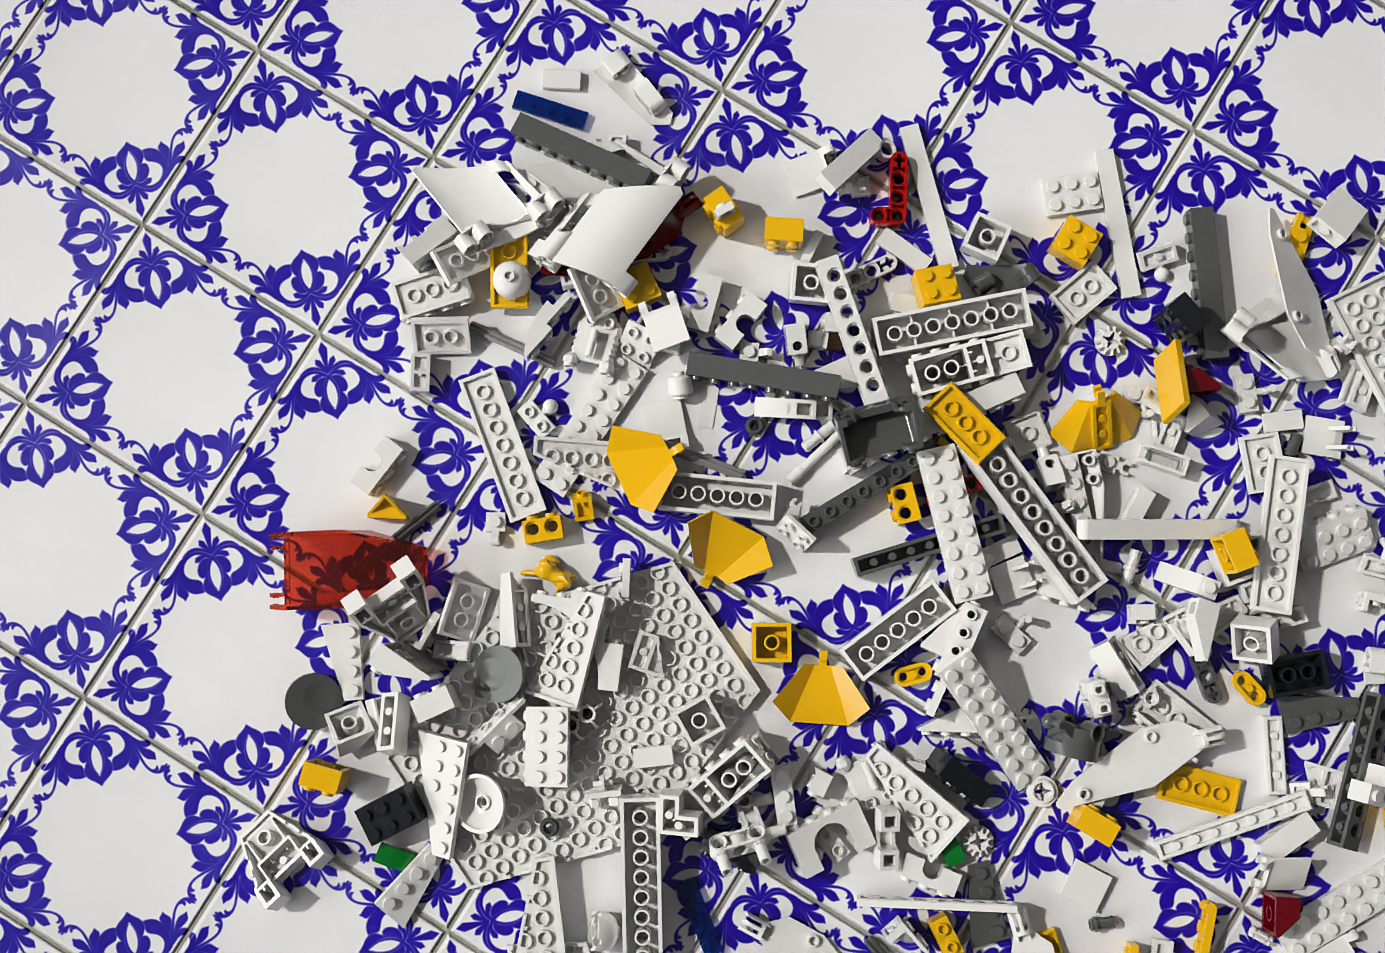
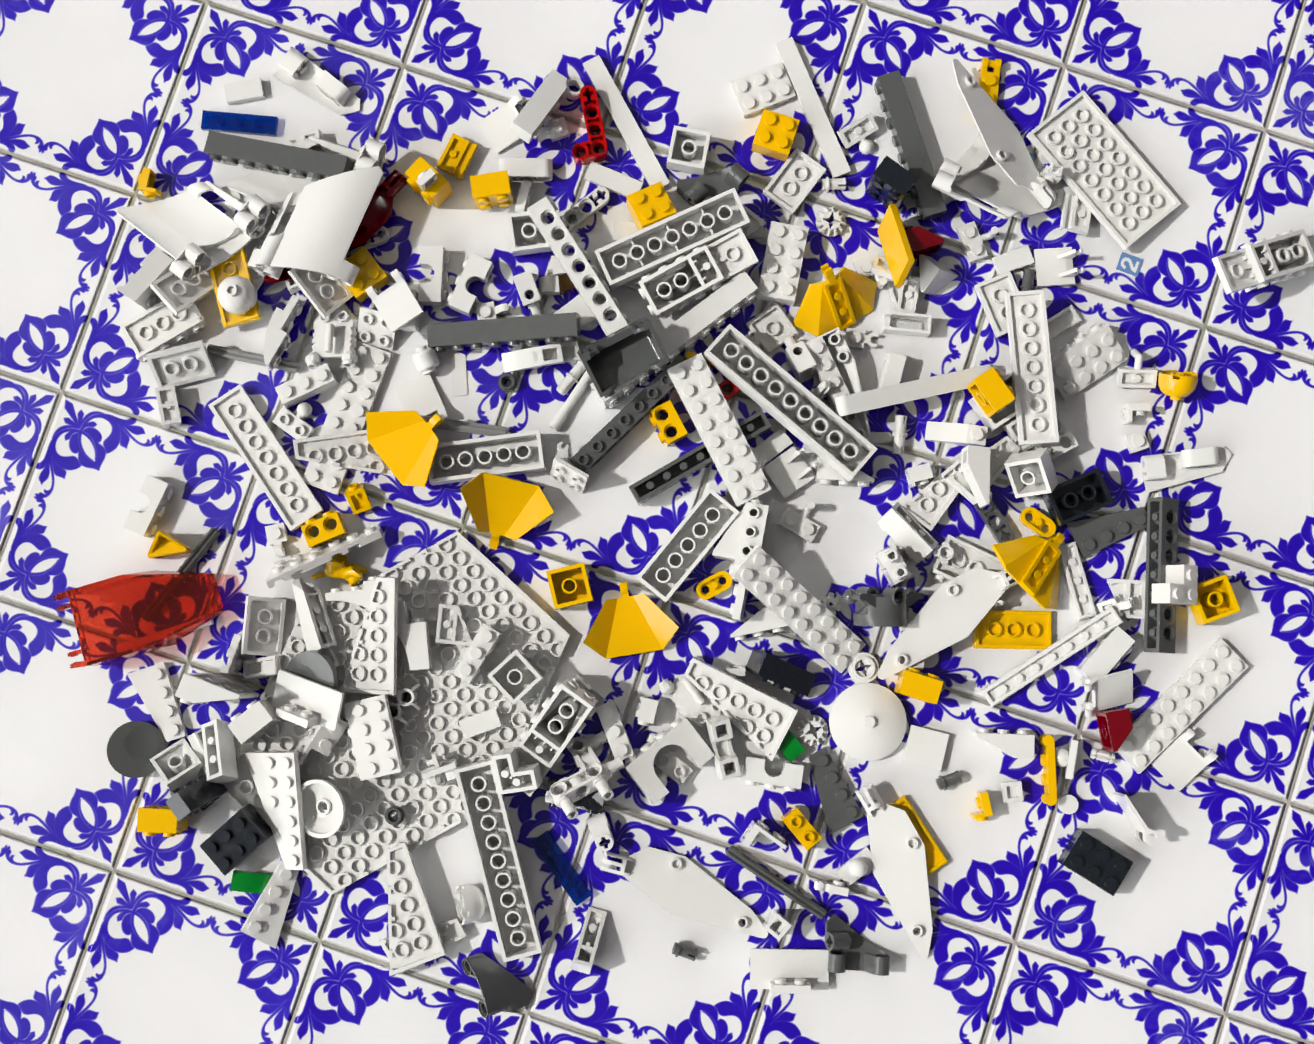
camera: 20 degrees left, 0 degrees up
(275, 851) = (133, 903): white wedge -> none
(361, 763) = (194, 797): none -> black wedge
(395, 609) = (195, 640): white wedge -> none
(447, 148) = (146, 183): none -> yellow bracket
(490, 696) = (306, 701): none -> white bracket
(534, 555) = (319, 556): none -> white wing
(558, 383) = (306, 385): none -> white brick
(625, 586) = (412, 550): white plate -> none
(666, 688) = (476, 653): none -> white arch
(746, 889) = (600, 828): none -> white piece
(755, 191) = (457, 156): none -> yellow plate
(821, 219) = (527, 168): none -> white beam
(937, 903) = (785, 799): white tile -> none
(964, 423) = (704, 330): yellow tile -> none
(1033, 845) = (867, 721): none -> white dish
(1053, 371) = (782, 263): none -> white brick
(1120, 304) = (833, 184): none -> white pin
(1176, 904) = (1014, 745): none -> white slope
(1226, 930) = (1067, 758): none -> white tile
(1236, 731) = (1034, 566): none -> yellow panel
(1337, 217) = (1019, 54): white panel -> none
(1365, 630) = (1136, 441): none -> white plate

